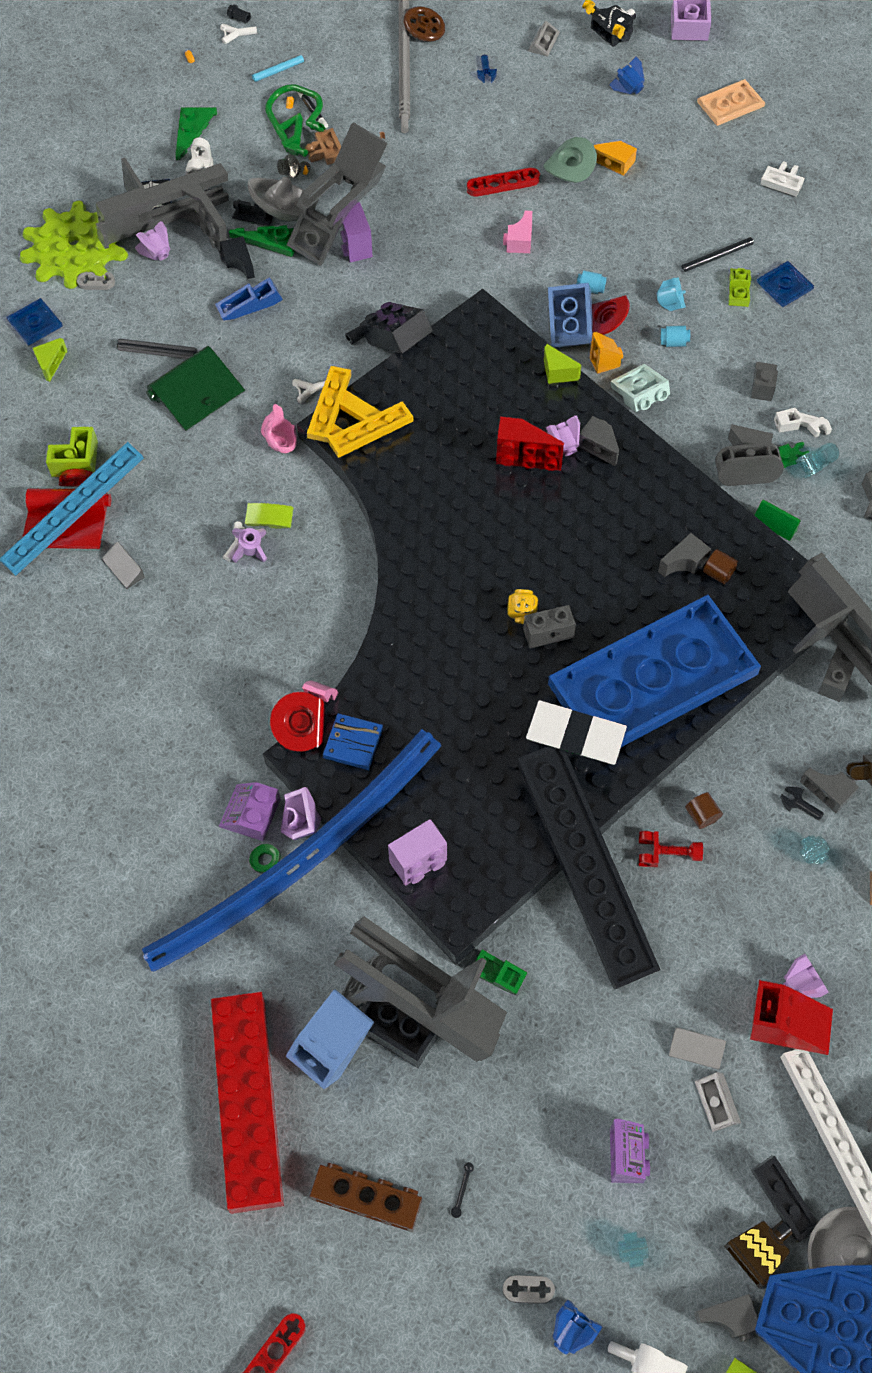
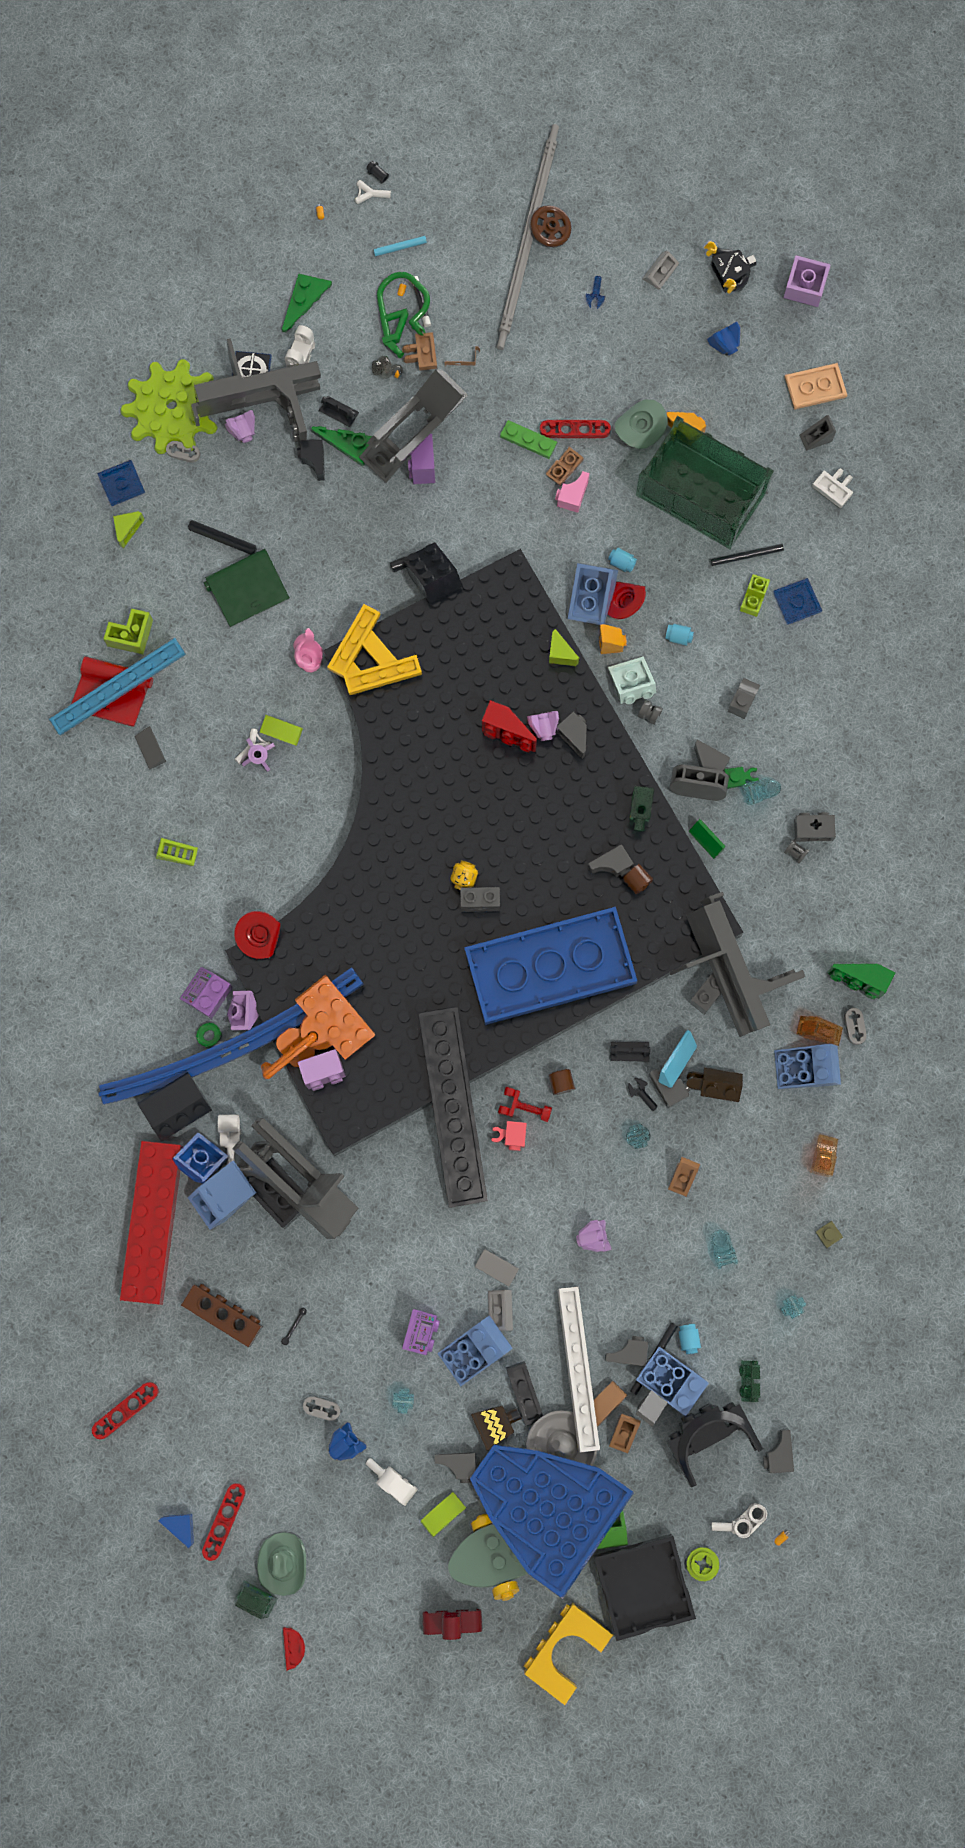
camera: 15 degrees right, 15 degrees up
(73, 477) = (127, 654): red tile -> none
(170, 674) = (167, 857): none -> lime slope
(243, 948) = (174, 1106): none -> black slope
(249, 300) = (313, 506): blue slope -> none
(276, 197) = (364, 403): light grey hat -> none
(290, 1003) = (200, 1159): none -> blue slope
(310, 389) = (346, 610): white piece -> none
(319, 965) = (229, 1133): none -> white beam
(320, 690) = (280, 912): bright pink slope -> none
(353, 741) = (297, 960): blue tile -> none
(411, 790) = (330, 1018): none -> orange plate
(458, 200) = (528, 439): none -> bright green plate
(501, 974) = (364, 1171): green slope -> none
(503, 215) = (564, 466): none -> medium nougat slope
(576, 732) = (471, 1002): white sticker -> none
(653, 193) = (704, 483): none -> clear green container
(667, 883) = (514, 1134): none -> coral brick
(670, 413) = (650, 712): none -> dark grey wheel
(671, 295) = (689, 591): medium azure piece -> none
(698, 490) = (641, 798): none -> clear green torso
(703, 1161) = (475, 1350): none -> medium blue slope
(751, 136) = (818, 434): none -> dark grey slope
(770, 760) = (629, 1051): none -> black hinge
(790, 1019) = (572, 1265): red slope -> none
(813, 423) = (771, 750): white piece -> none
(831, 752) = (678, 1060): none -> medium azure slope

